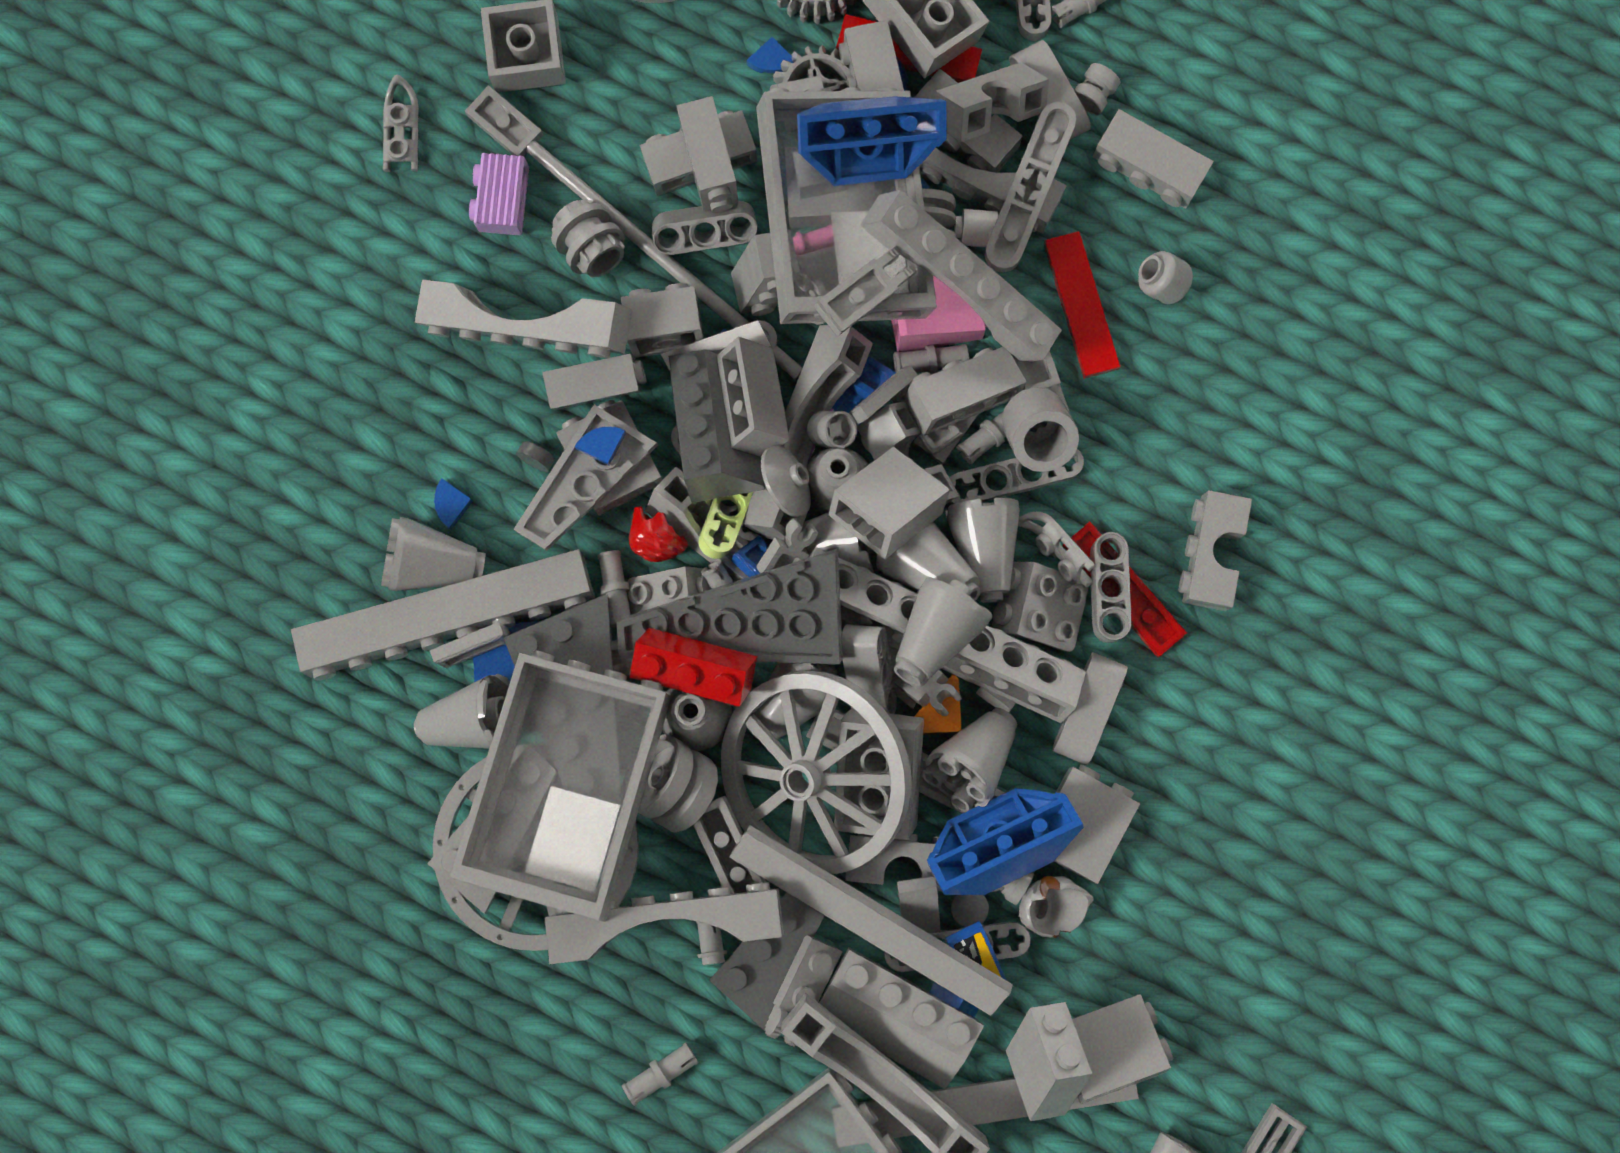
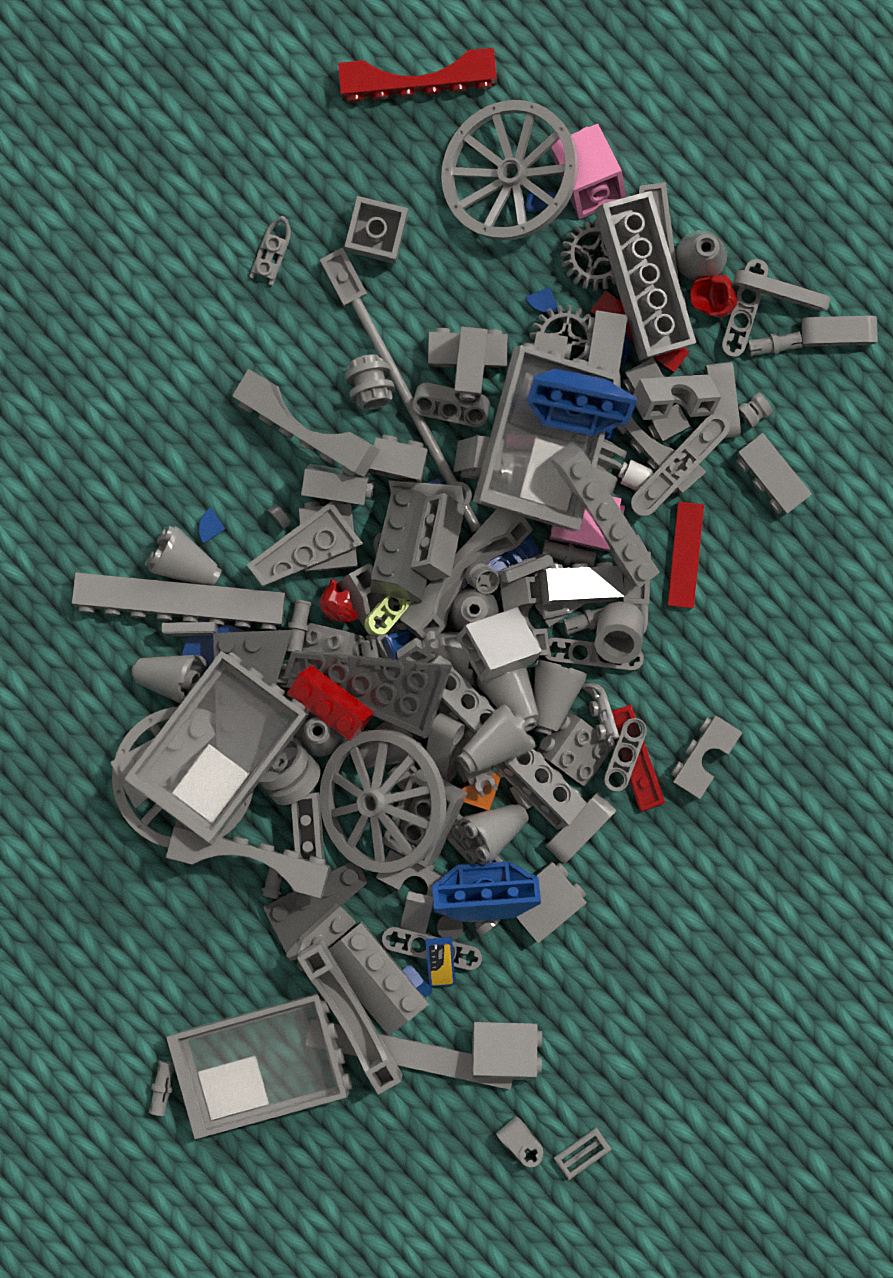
camera: 15 degrees right, 5 degrees up
(500, 194) = (322, 326): lavender brick -> none
(601, 443) = (326, 530): blue tile -> none
(659, 1074) = (208, 954): light grey pin -> none
(786, 480) = (437, 603): light grey dish -> none
(861, 292) = (532, 505): light grey hinge -> none
(871, 920) = (381, 909): light grey tile -> none
(1048, 1061) = (459, 1042): light grey brick -> none
(1054, 906) = (504, 946): light grey hair -> none
(1165, 277) = (747, 560): light grey head -> none

